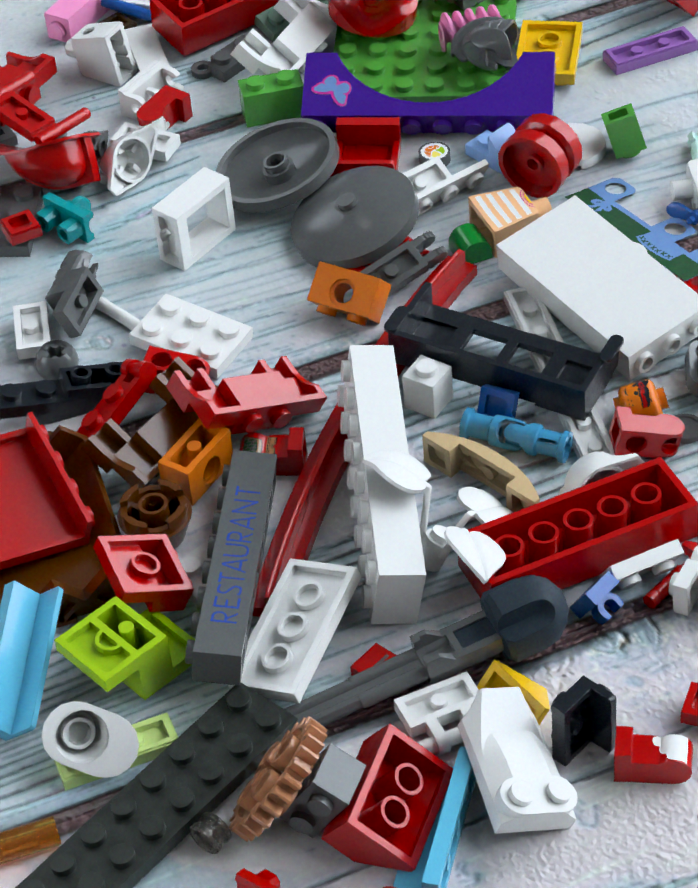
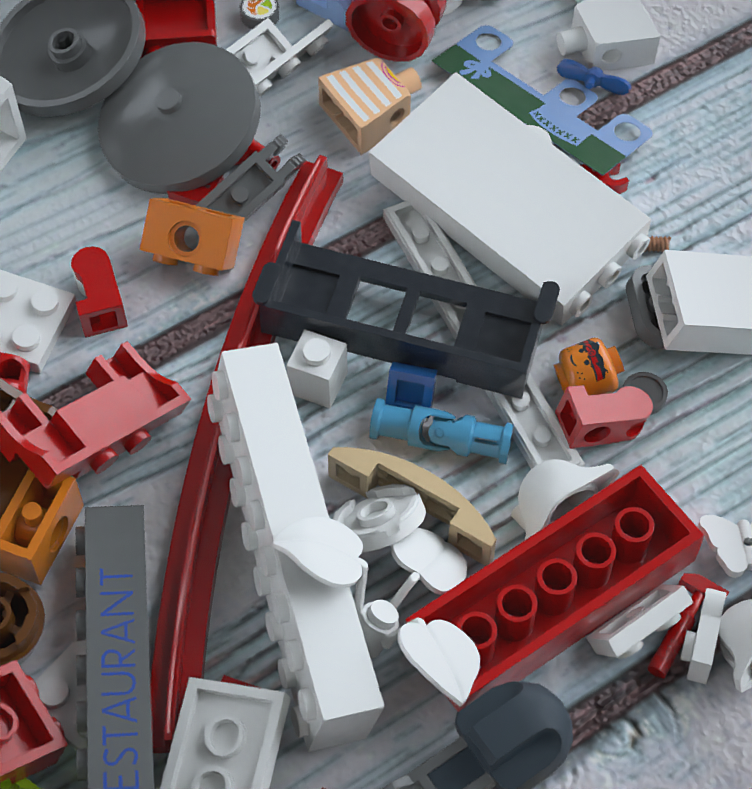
camera: 15 degrees left, 15 degrees up
(270, 333) = (96, 280): none -> red leg
(290, 449) = (148, 486): red leg -> none
(457, 478) = (384, 517): none -> white tile
(470, 239) = (328, 138): green brick -> none
(596, 597) = (591, 677): tile -> none

